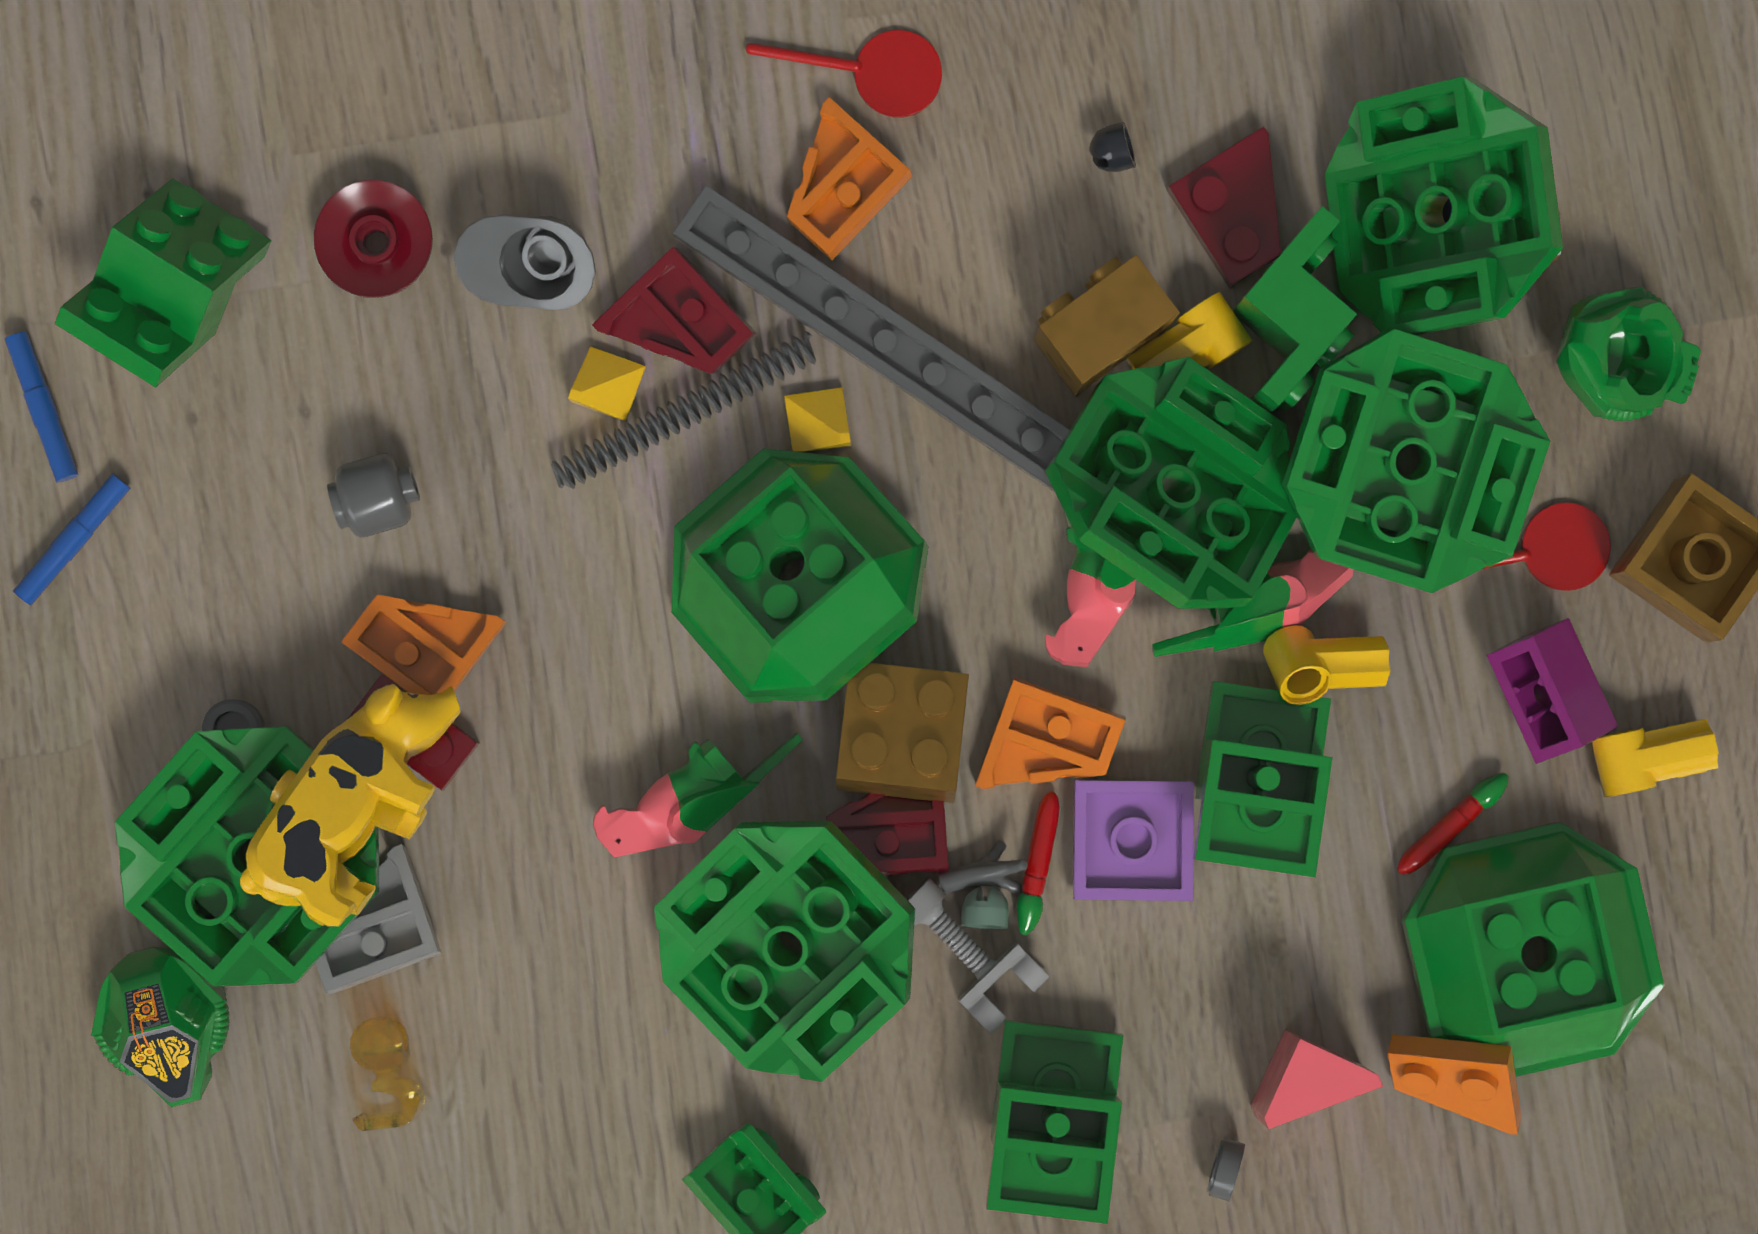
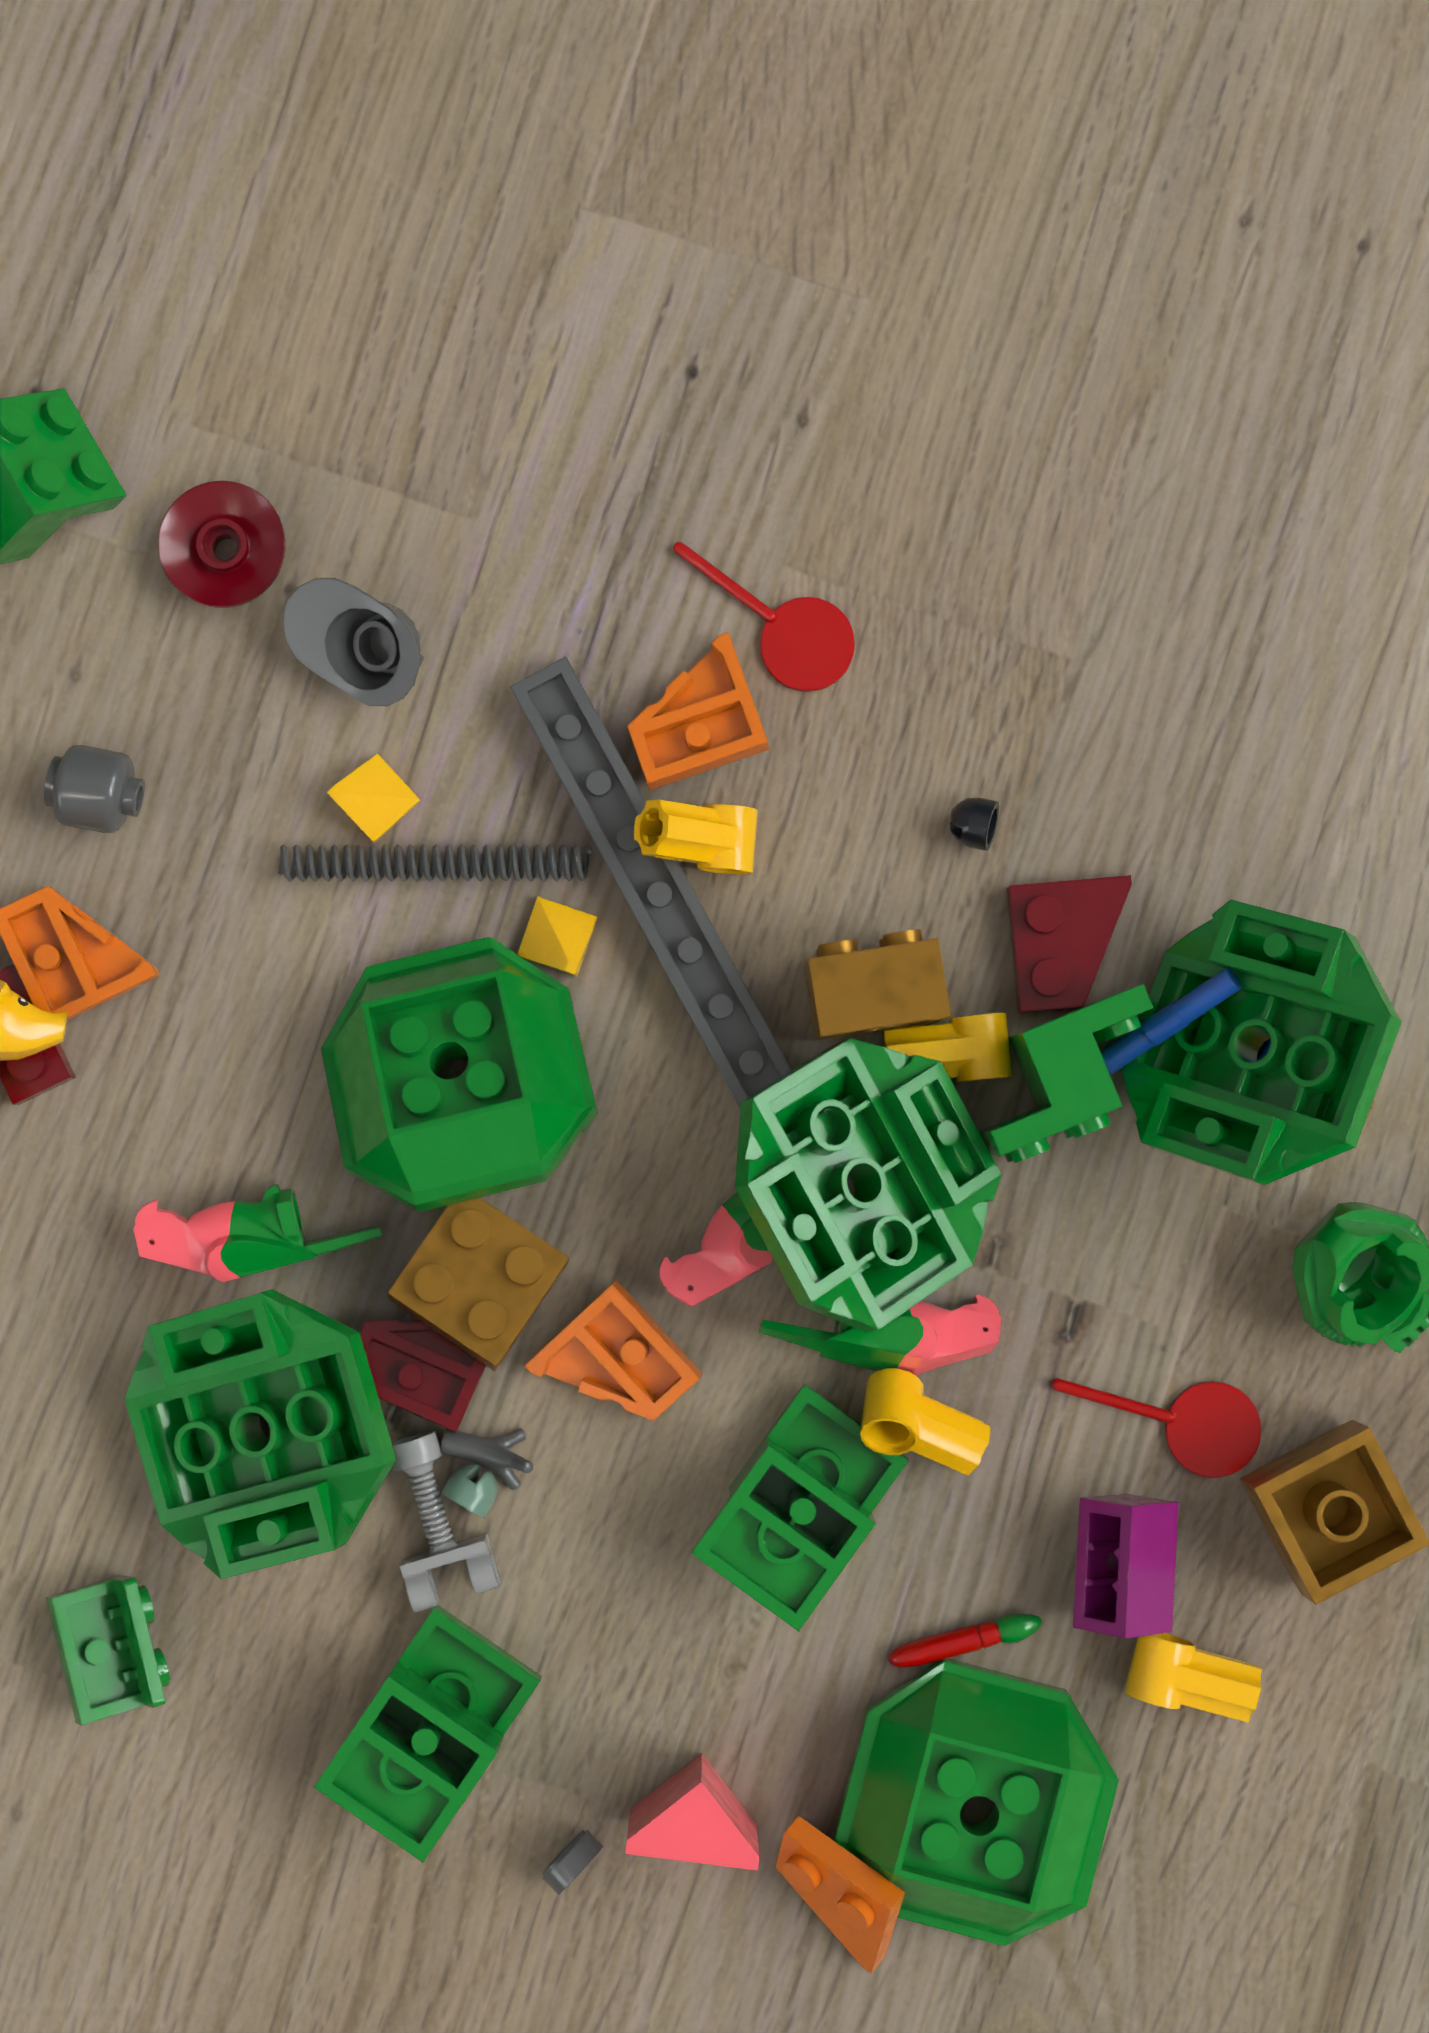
camera: 30 degrees right, 0 degrees up
(677, 316) = (475, 767): dark red wing -> none
(901, 271) = (711, 835): none -> yellow piece
(1030, 903) = (519, 1504): red piece -> none
(1133, 840) = (648, 1497): medium lavender plate -> none
(1359, 224) = (1170, 1020): none -> blue piece
(1472, 475) = (1143, 1330): green piece -> none

